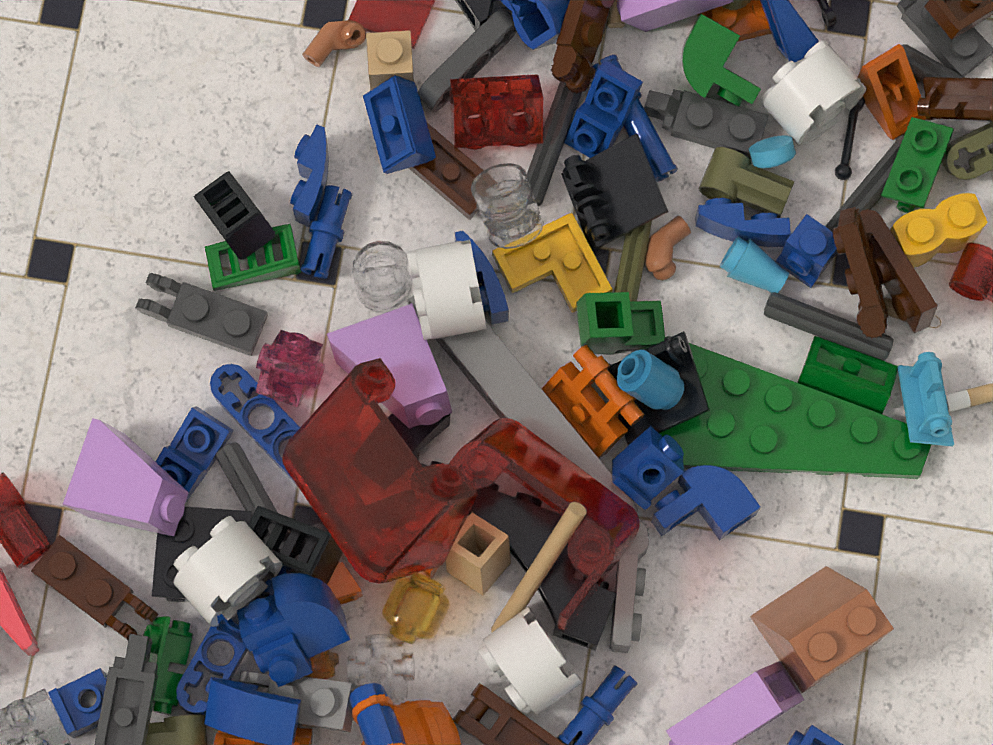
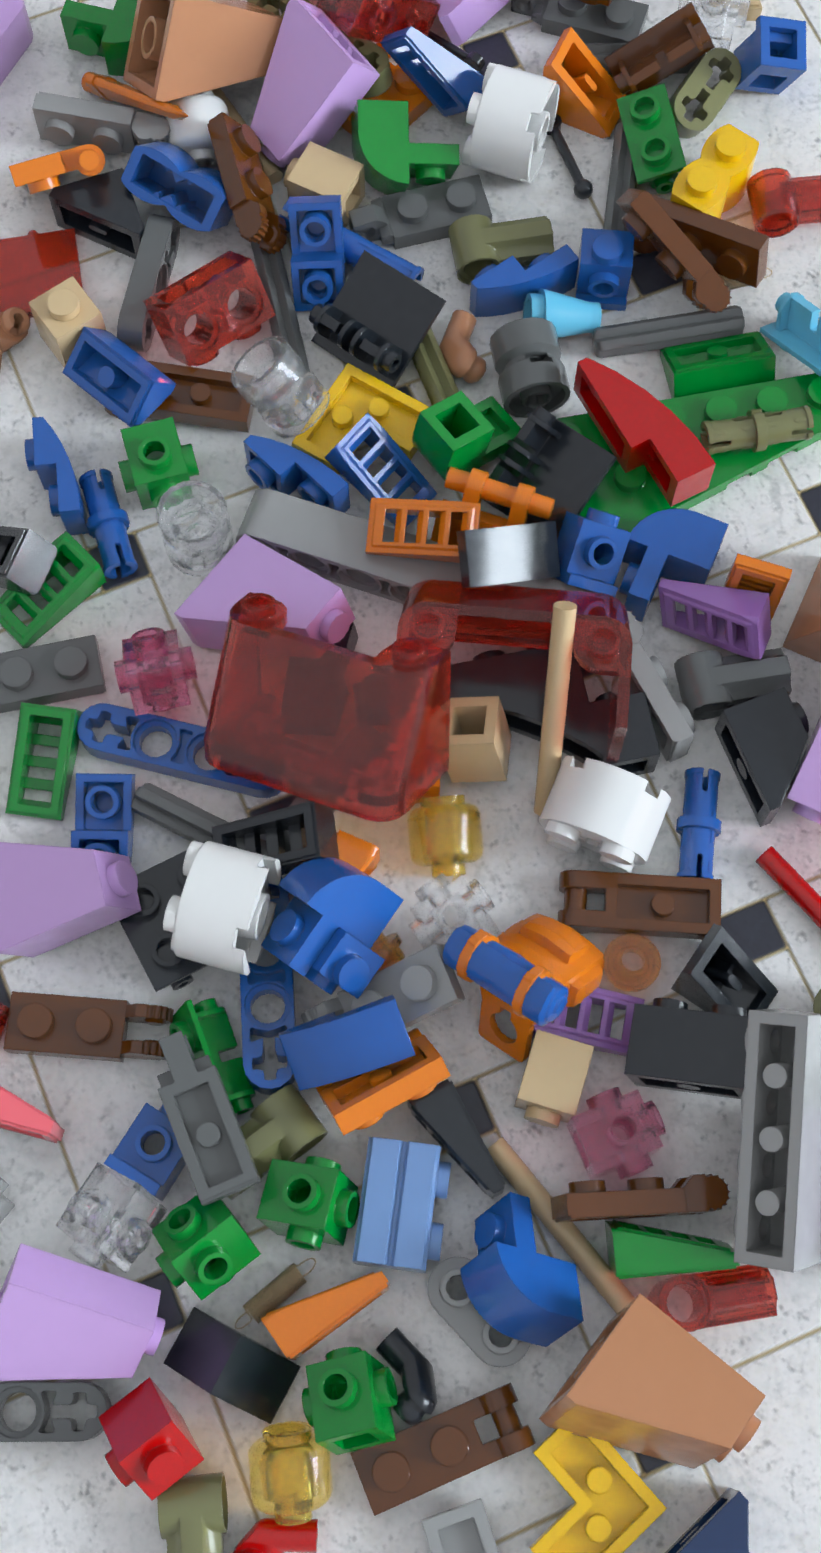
camera: 30 degrees left, 5 degrees down
(165, 372) = (23, 758): none -> green slope
(385, 210) = (155, 460): none -> green brick
(446, 290) = (276, 486): white brick -> none
(530, 279) = (381, 445): none -> blue slope
(565, 403) = (445, 510): none -> orange slope
(580, 439) = (508, 554): none -> slope
(646, 56) = (326, 173): none -> tan brick
(650, 380) = (539, 460): dark azure brick -> none
(679, 617) = (717, 682): none -> dark grey piece
(681, 684) = (764, 748): none -> black slope
(703, 290) = (529, 366): none -> dark grey wheel
(711, 572) = (731, 617): none -> medium lavender slope
(745, 400) = (643, 432): none -> red slope
(745, 567) = (759, 576): none -> orange slope
(772, 151) = (507, 198): medium azure tile -> none
(834, 446) = (757, 430): none -> olive pin

